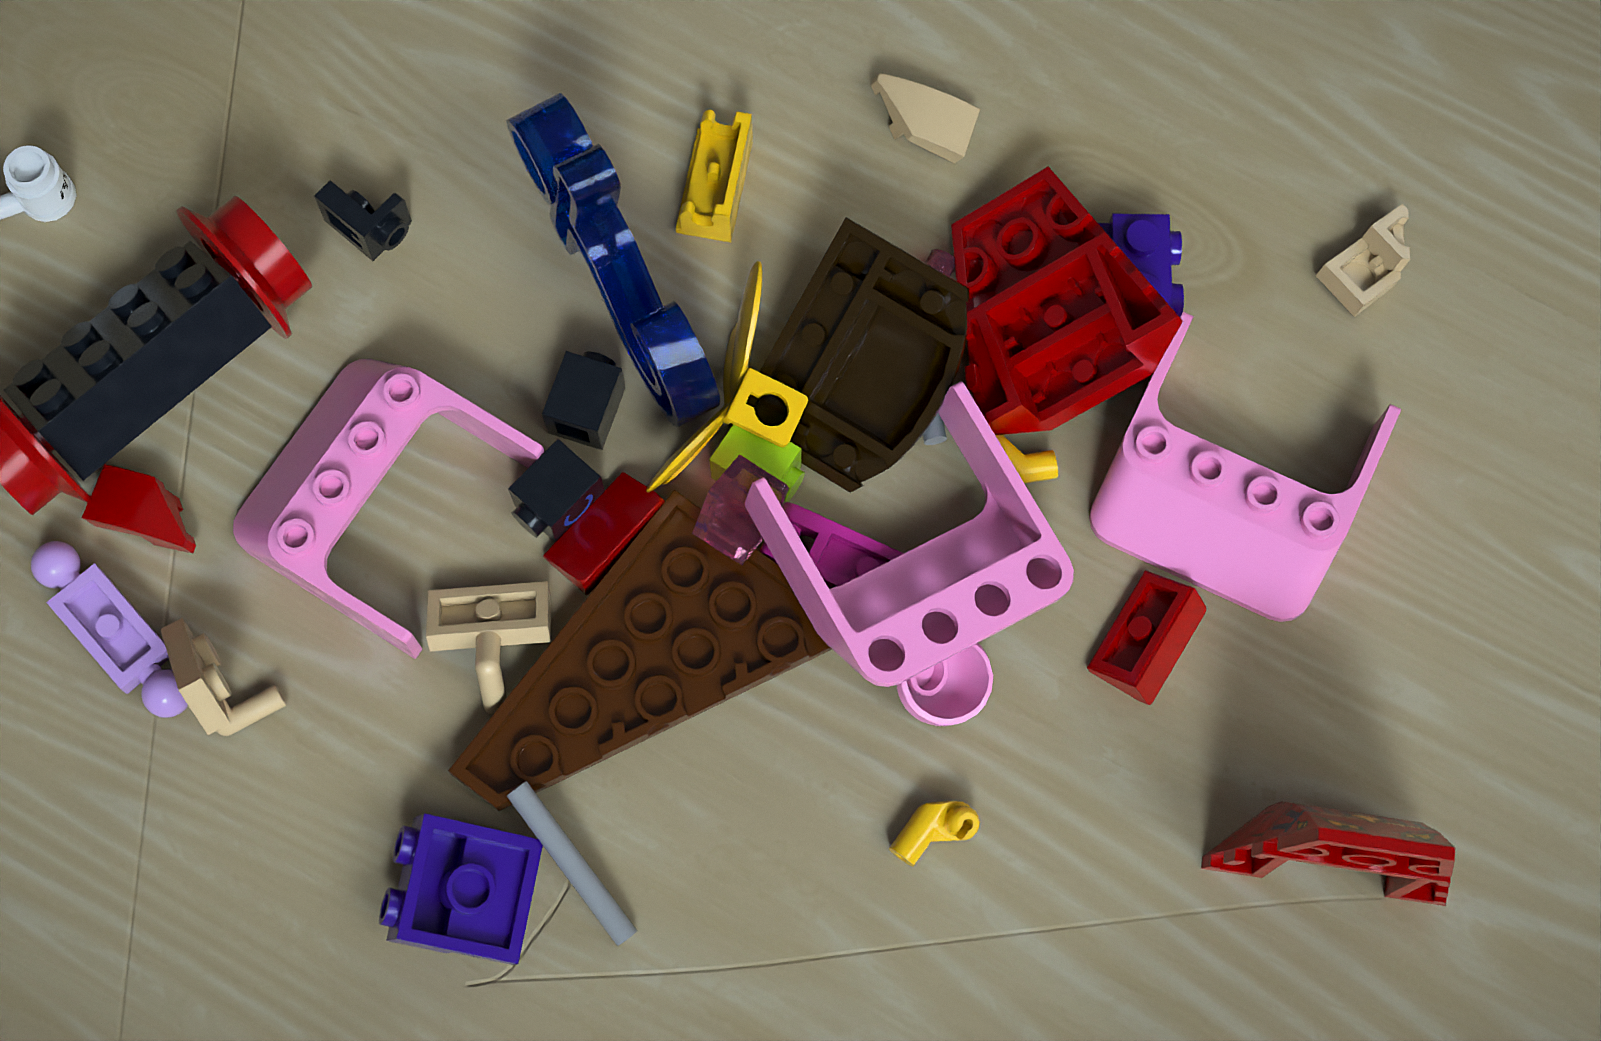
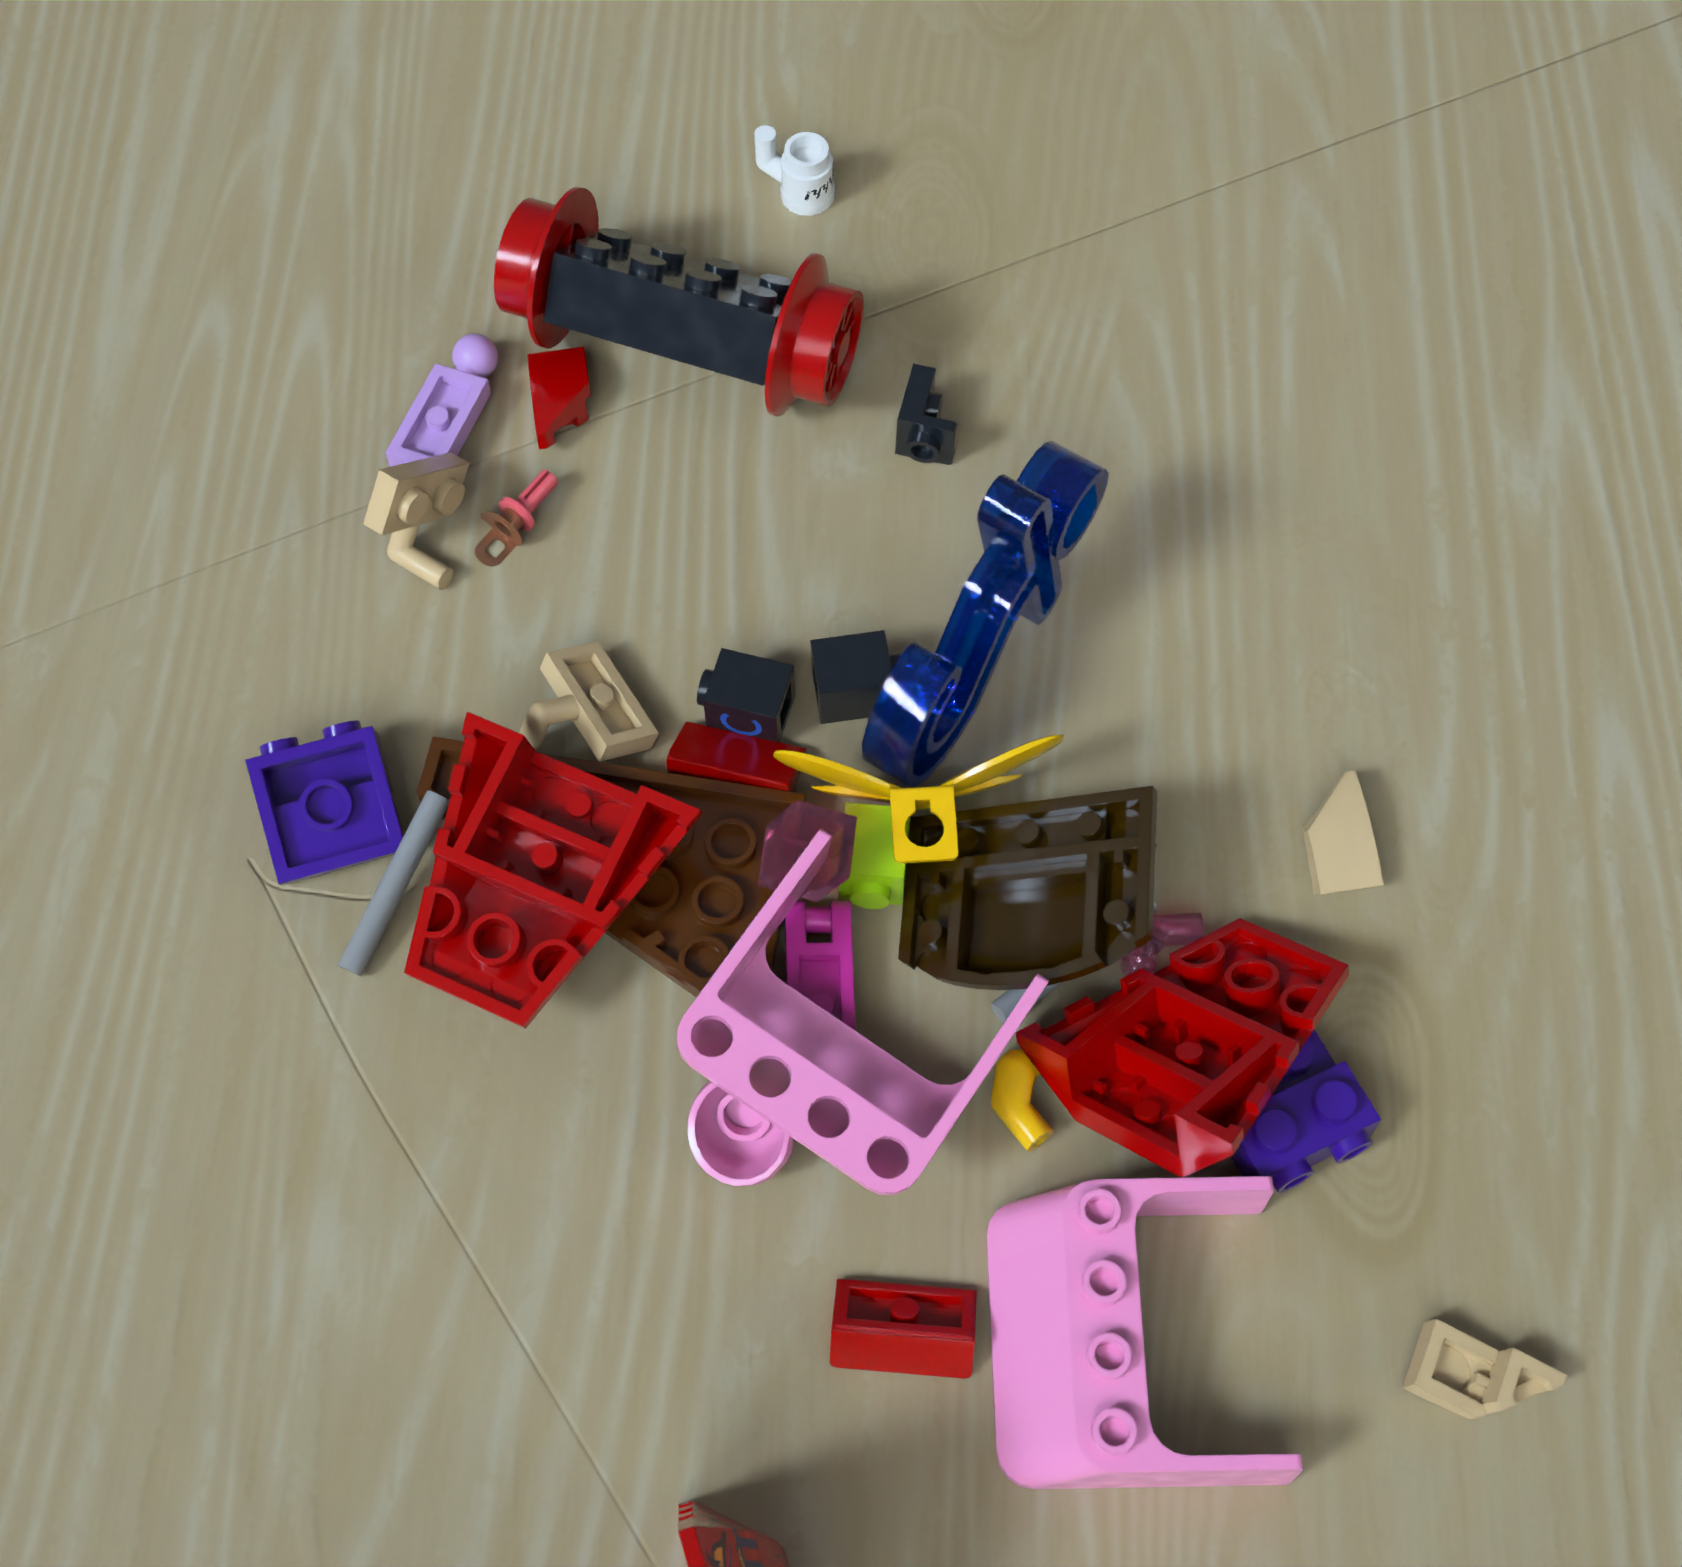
camera: 65 degrees right, 10 degrees down
(254, 607) = (514, 516): none -> piece
(337, 465) = (666, 509): bright pink windscreen -> none
(642, 735) = (531, 871): none -> red wedge
(716, 177) = (1151, 685): yellow hinge -> none
(933, 824) = (592, 1198): yellow arm -> none

